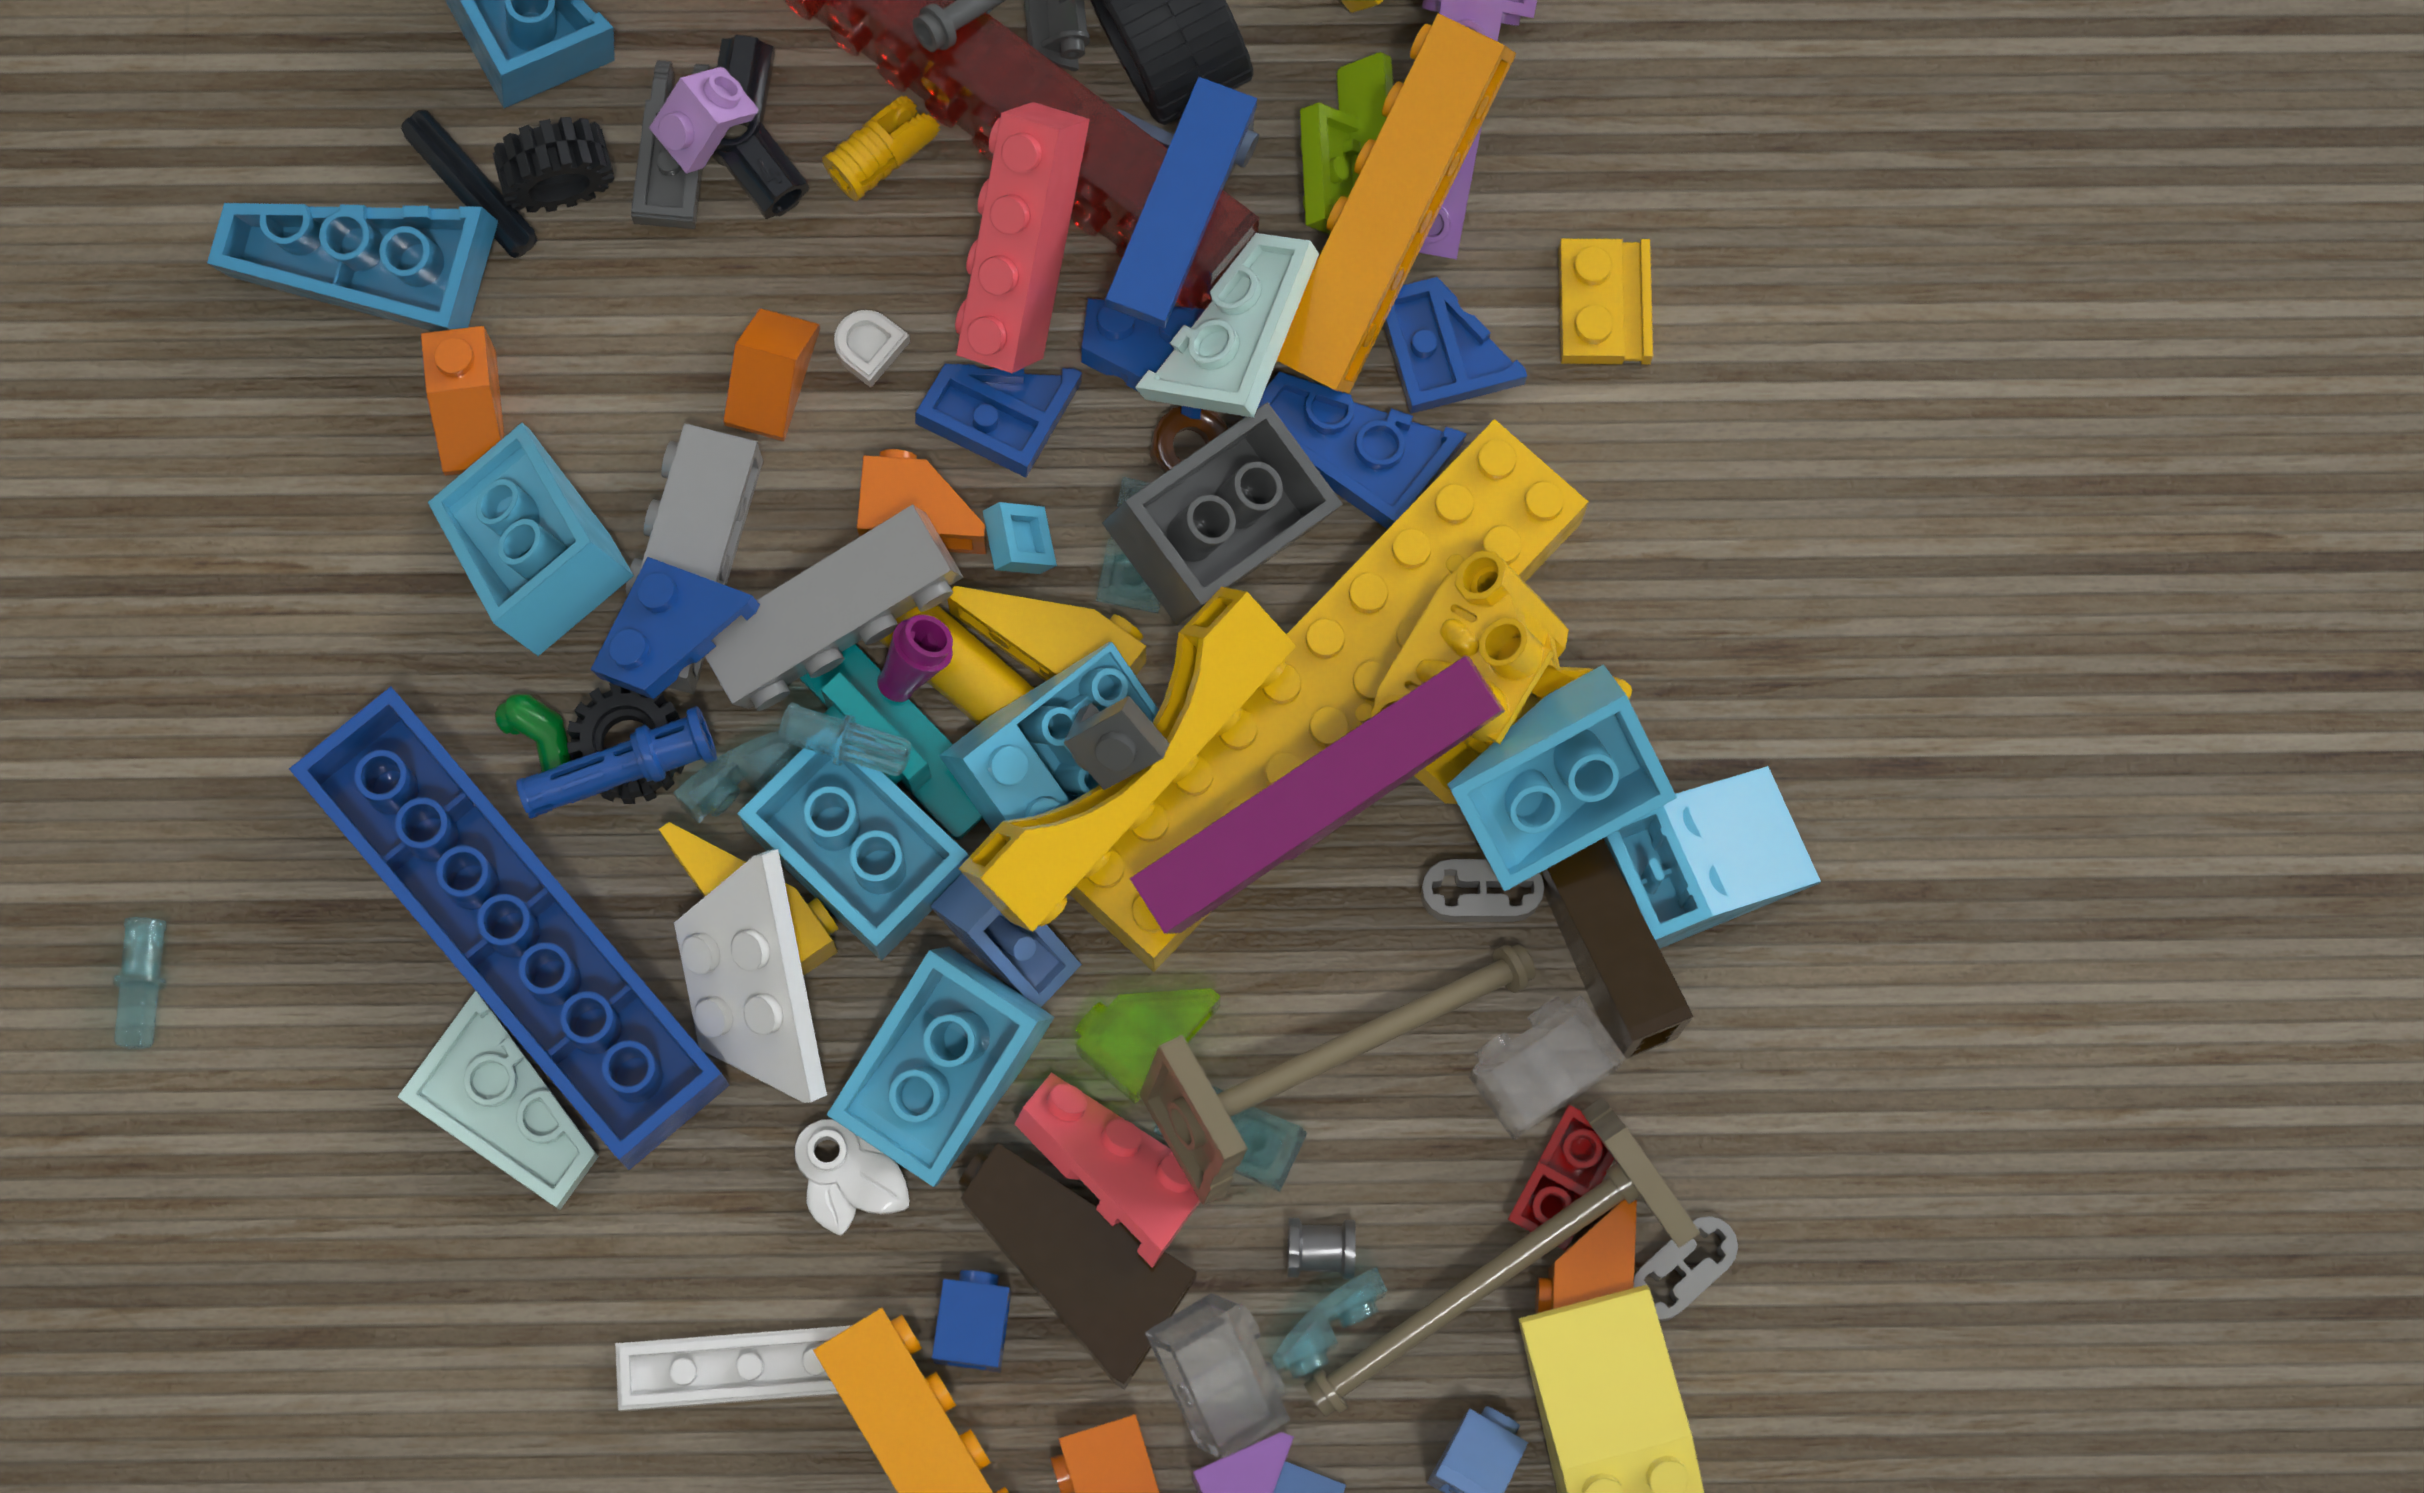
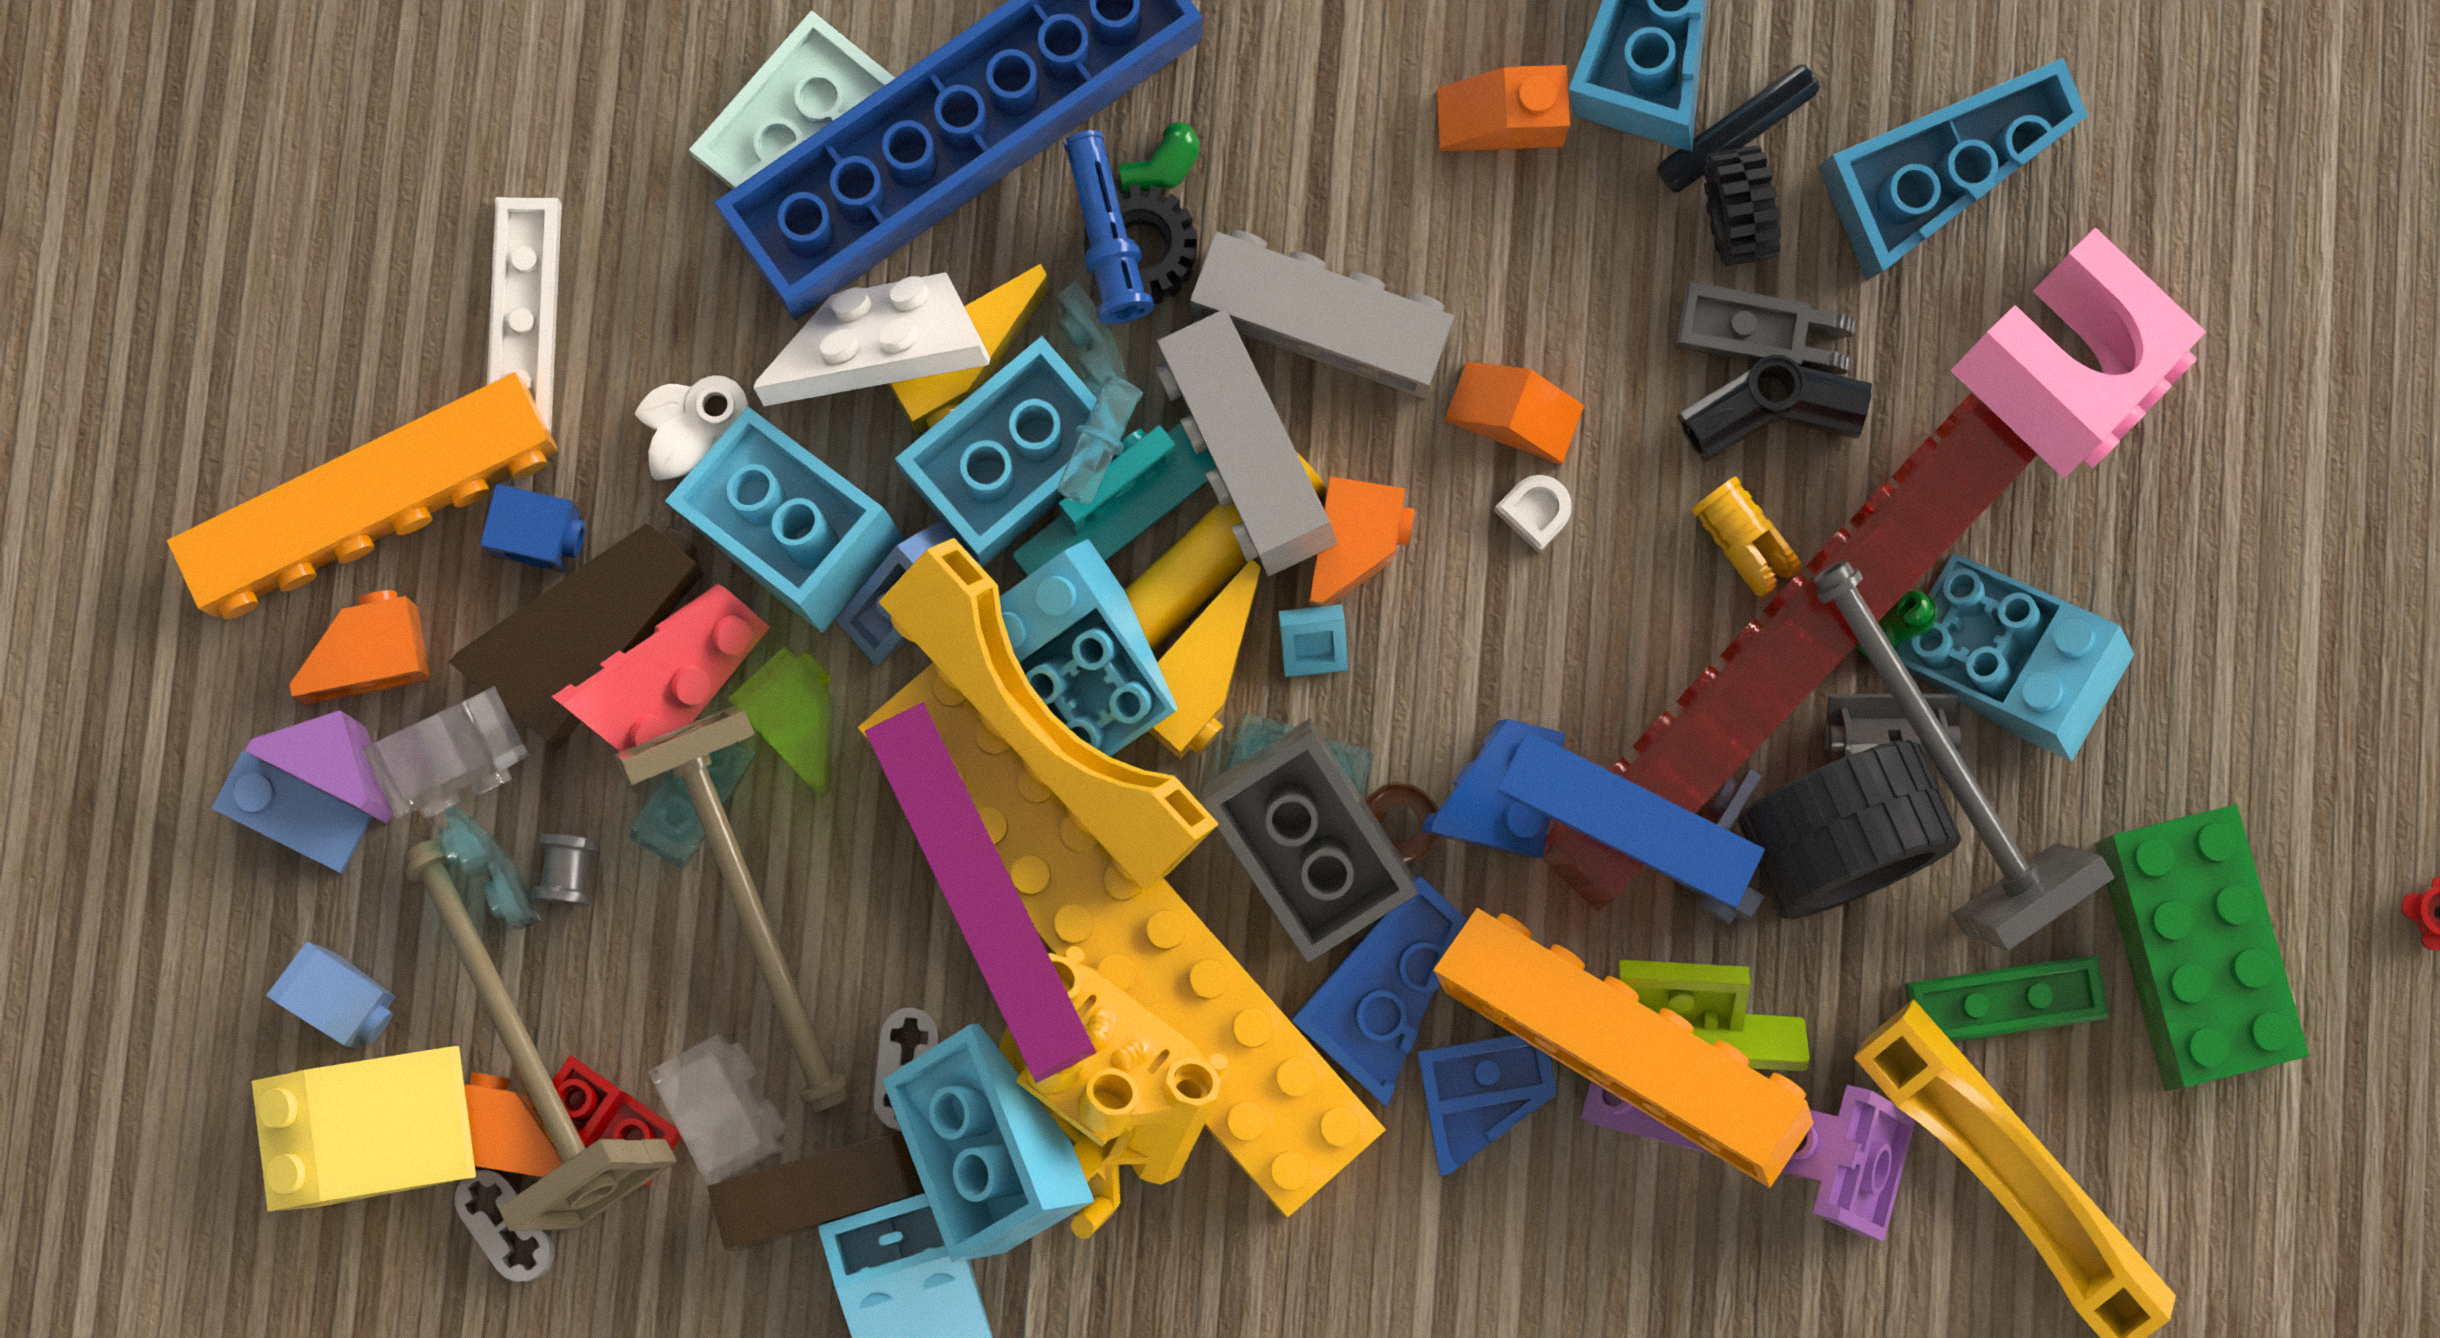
camera: 95 degrees right, 5 degrees up
(528, 541) = (1349, 160): medium azure slope -> none
(666, 627) = (1237, 280): blue wing -> none
(700, 115) = (1781, 353): lavender bracket -> none
(915, 655) = (1190, 522): magenta cone -> none
(997, 411) = (1451, 633): blue wing -> none
(1021, 236) = (1615, 658): coral brick -> none
(1114, 741) = (1060, 696): dark grey bracket -> none
(1237, 339) = (1492, 871): light aqua wing -> none
(1605, 301) = (1523, 1271): yellow plate -> none

